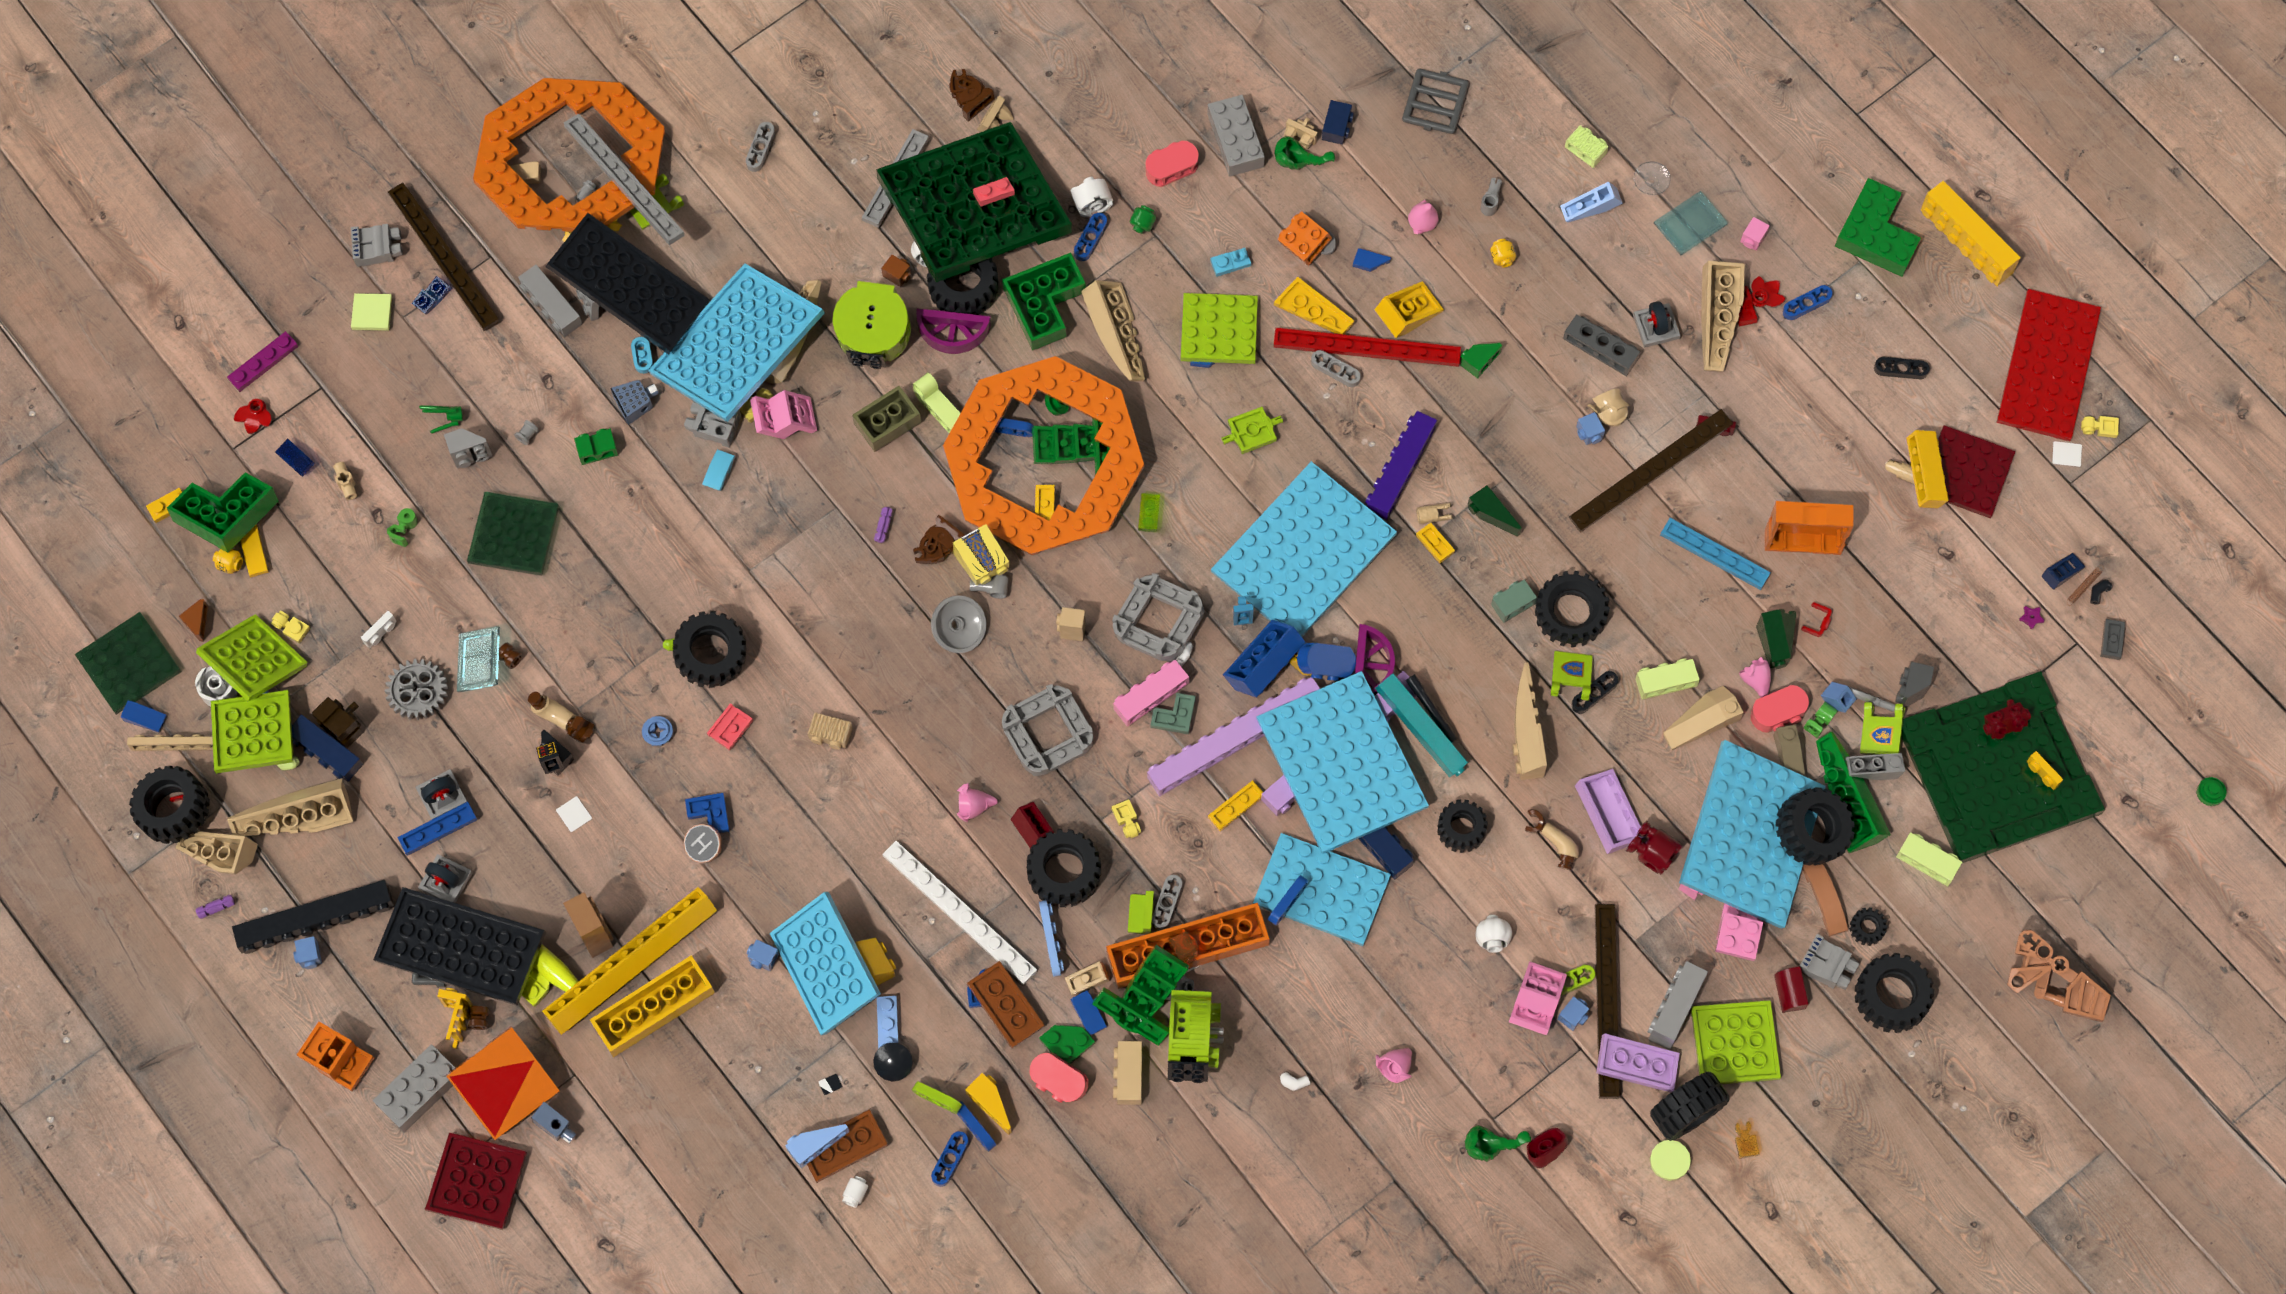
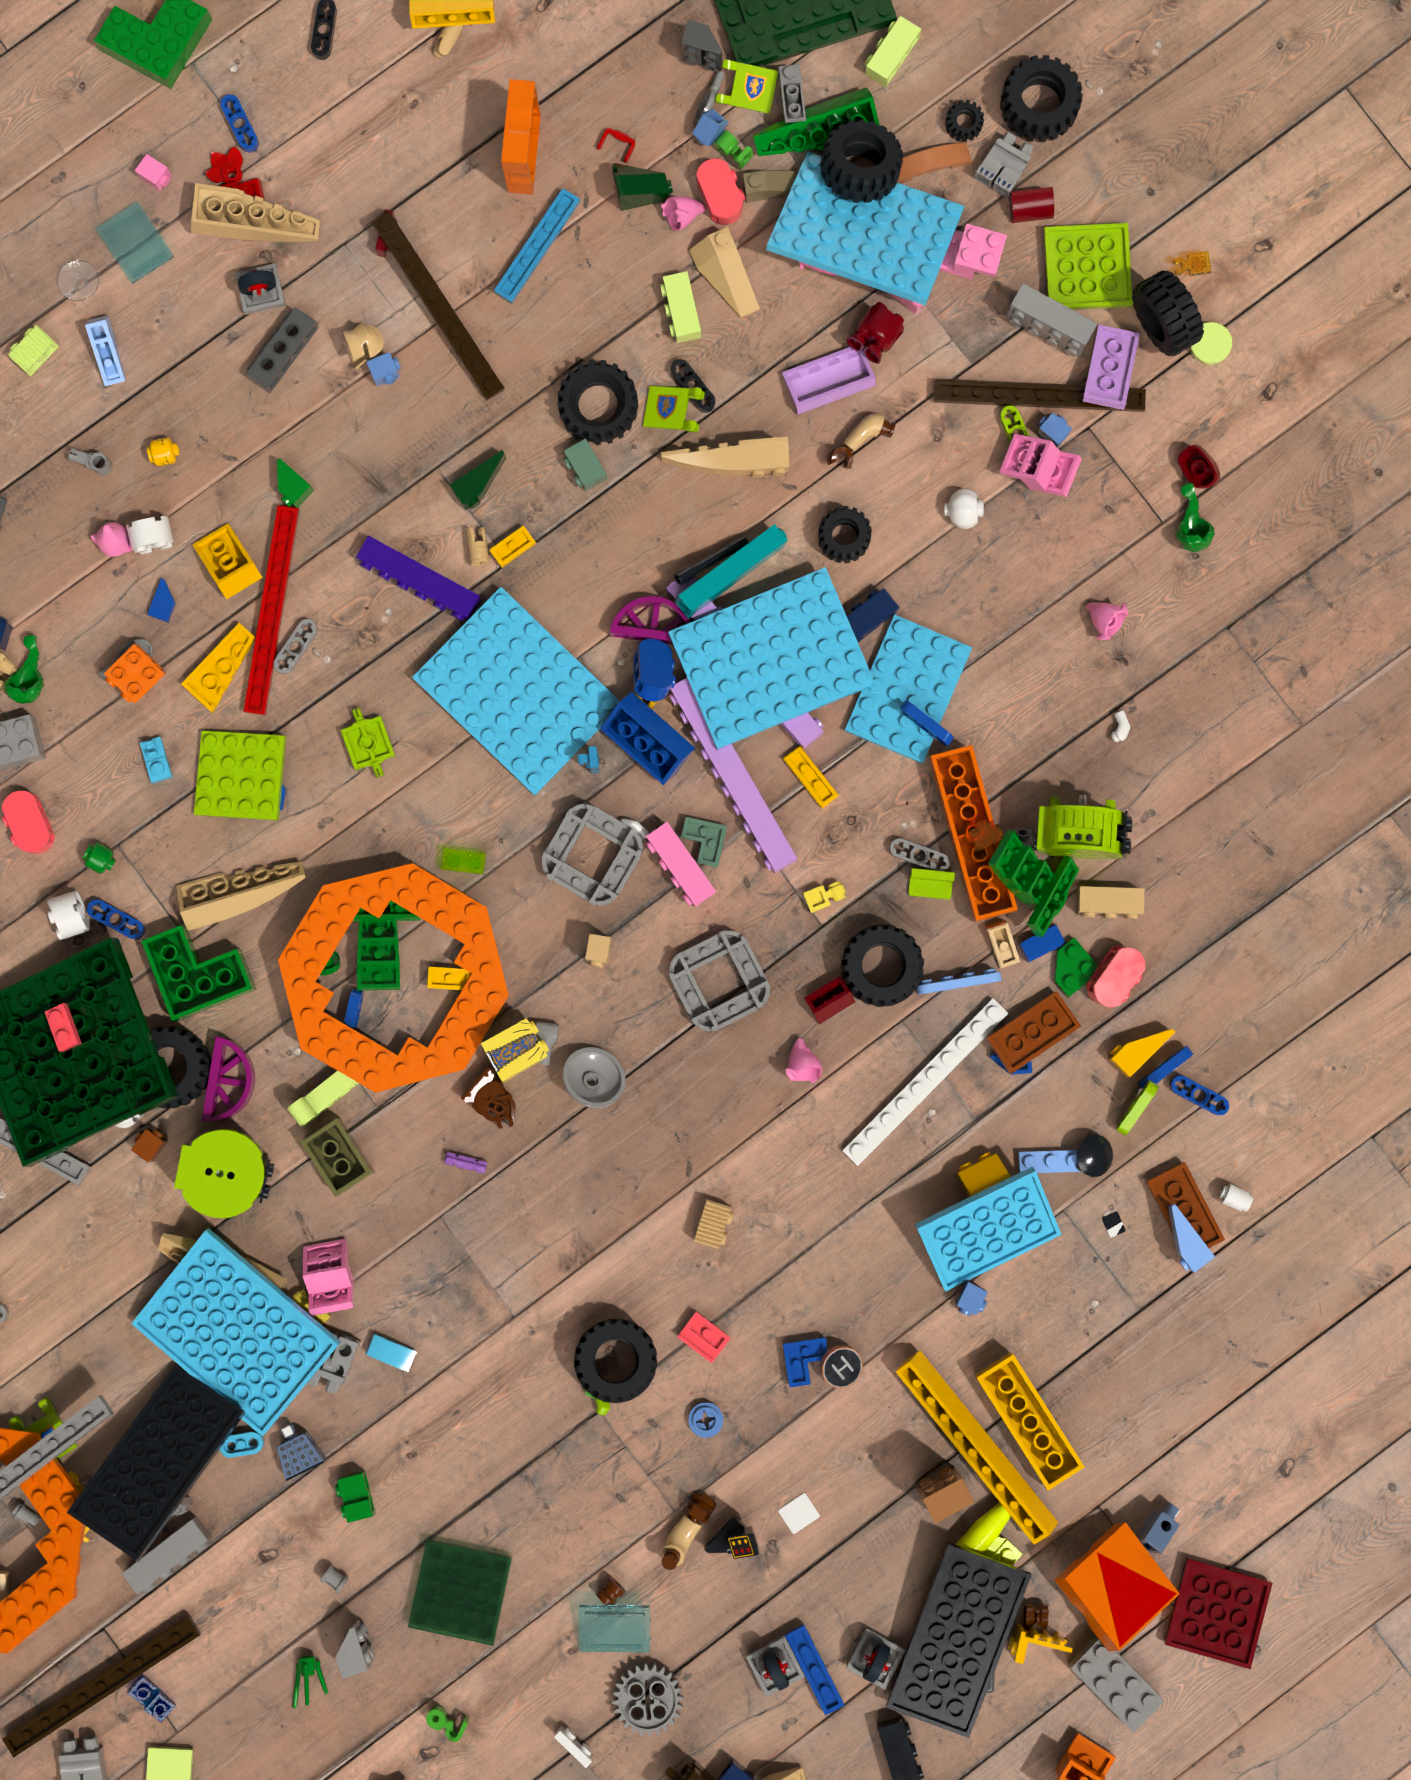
camera: 85 degrees left, 15 degrees up
(1427, 245) = (150, 534): none -> white brick

